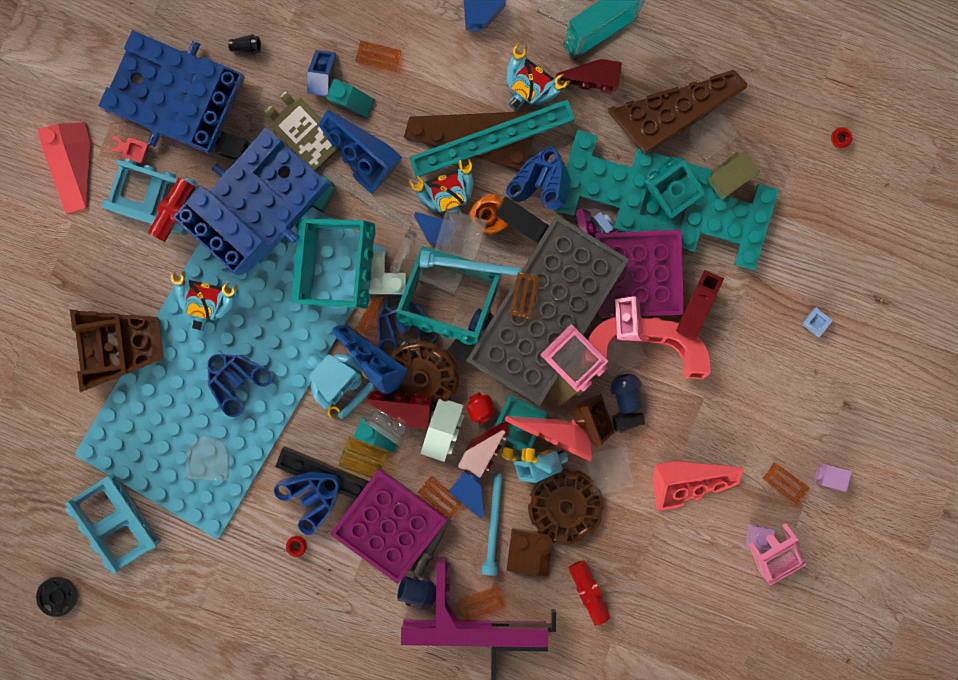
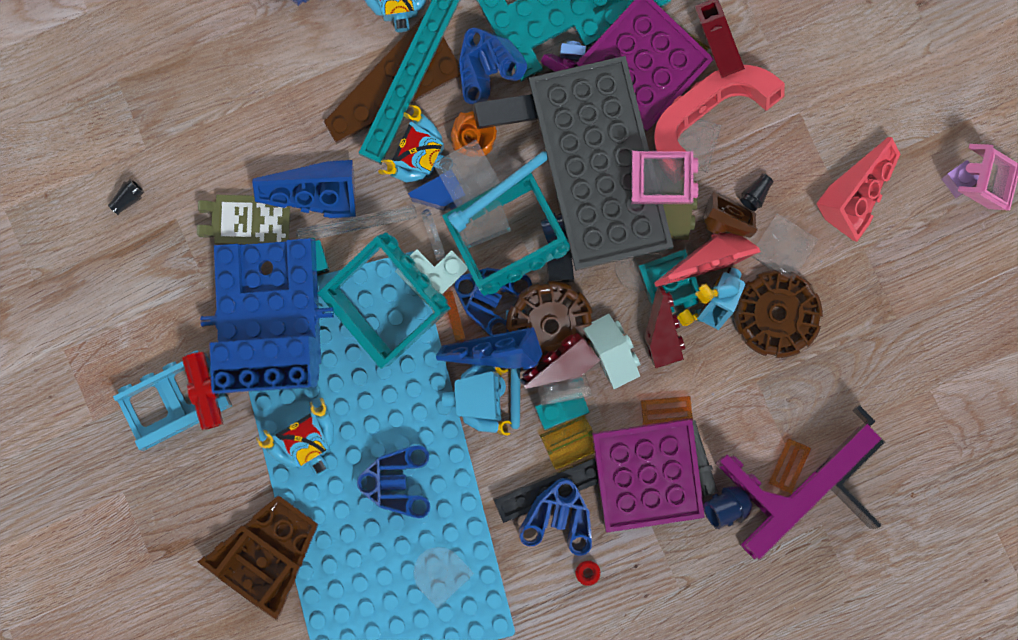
camera: 45 degrees left, 5 degrees down
(67, 155) = (65, 435): coral wedge -> none
(132, 149) = (115, 377): coral plate -> none
(178, 92) = (109, 295): blue piece -> none
(231, 146) = (198, 292): black brick -> none
(321, 73) = (214, 157): blue slope -> none
(349, 99) = (259, 155): teal slope -> none
(395, 61) = (256, 103): clear orange tile -> none
(469, 492) = (687, 381): blue slope -> none
(480, 408) = (626, 301): red head -> none
(490, 566) = (765, 425): medium azure piece -> none
(520, 313) = (580, 187): clear orange tile -> none
(529, 552) = (786, 381): reddish brown slope -> none
(589, 592) = (870, 365): red piece -> none
(627, 392) = (733, 168): dark blue piece -> none
(628, 319) = (673, 105): bright pink slope -> none
(800, 493) = (938, 105): clear orange tile -> none
(833, 477) = (970, 71): lavender brick -> none

